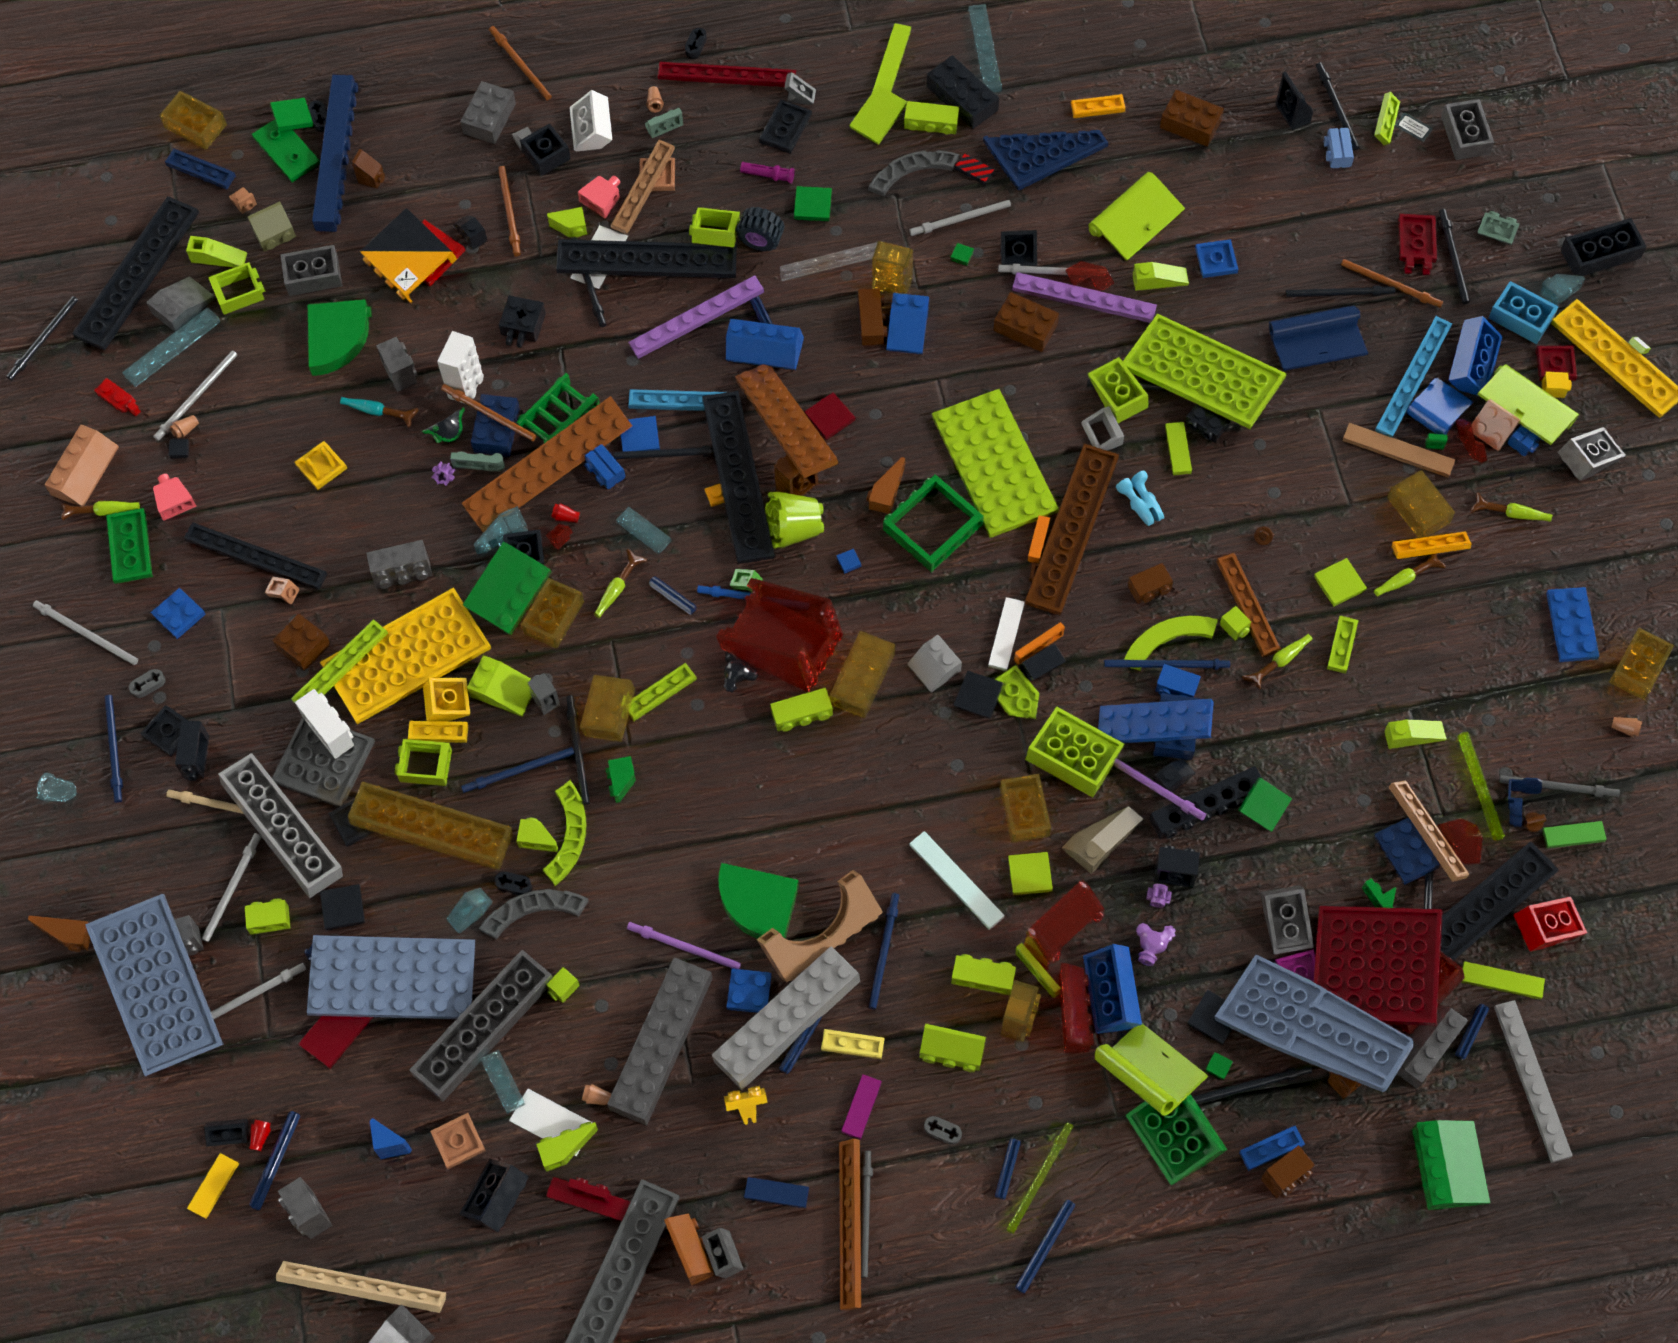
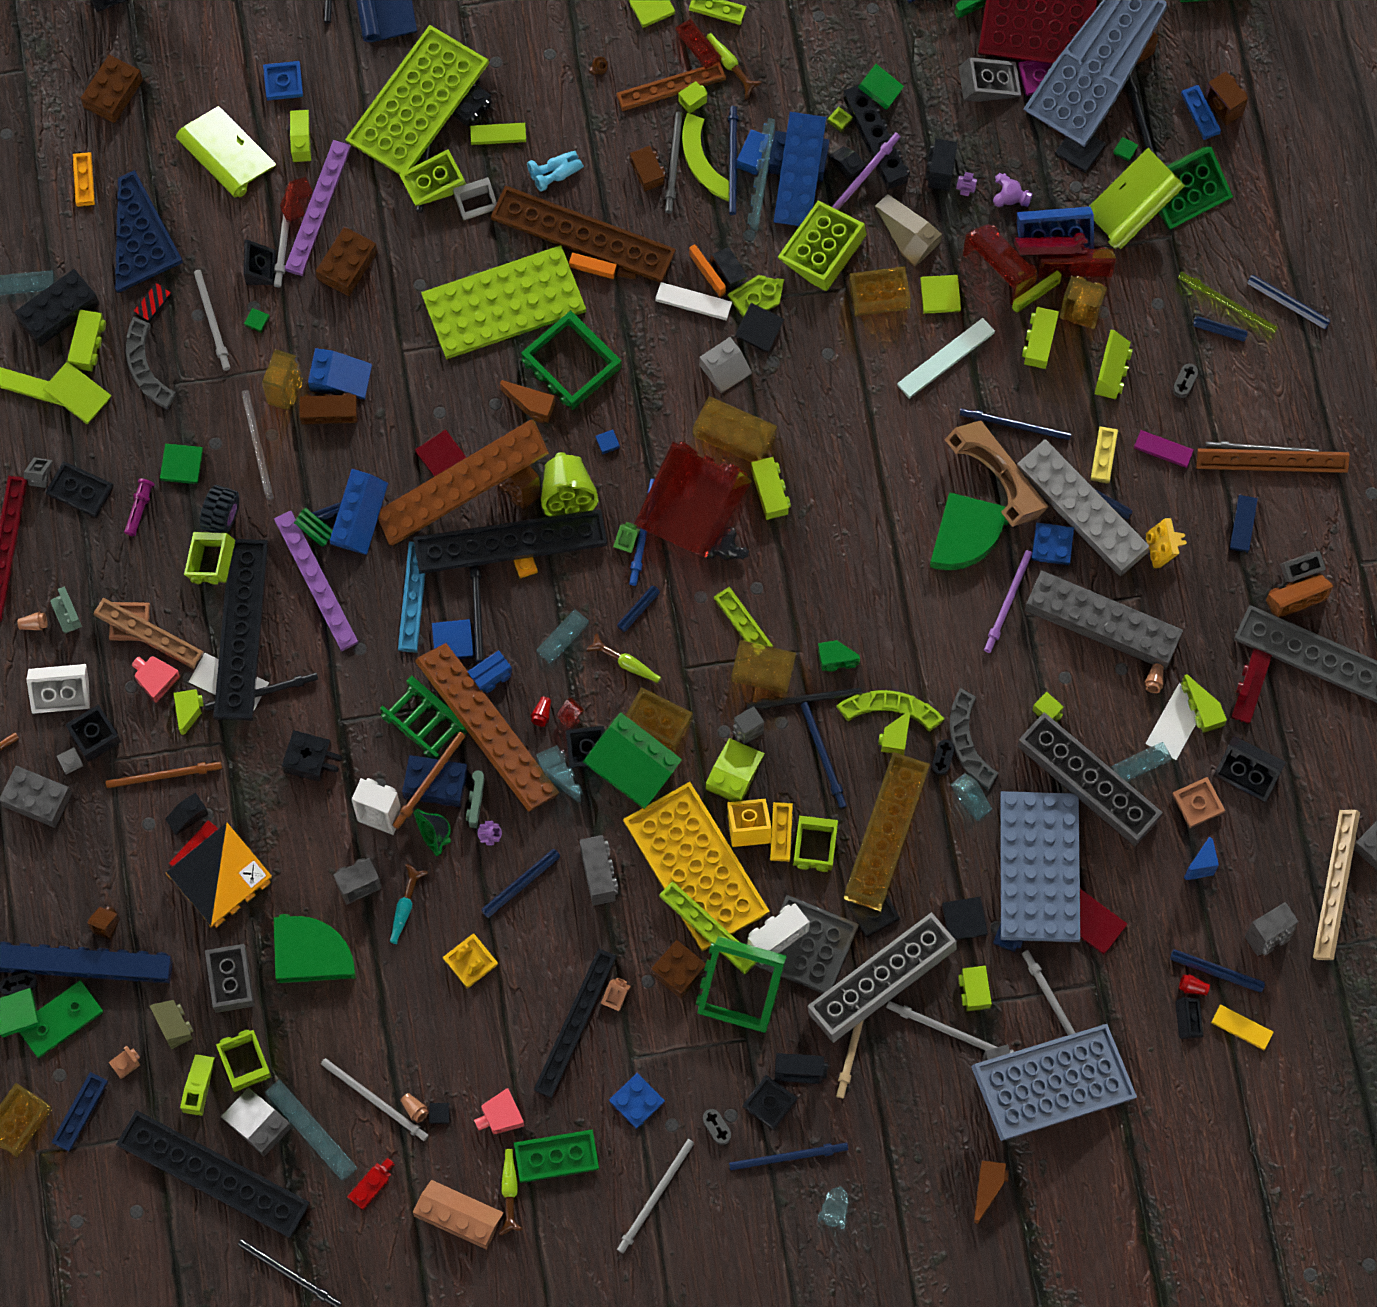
camera: 90 degrees left, 5 degrees up
(290, 699) = (748, 952): none -> green window
(396, 505) = (520, 883): none -> dark blue axle
(756, 296) = (314, 525): none -> green tile
(1086, 976) = (1050, 245): none -> dark red tile
(1124, 607) = (670, 193): none -> dark grey bar
(1147, 687) = (760, 181): none -> clear light blue plate
(1226, 768) = (839, 119): none -> lime tile
(1297, 626) = (698, 43): none -> clear red plate

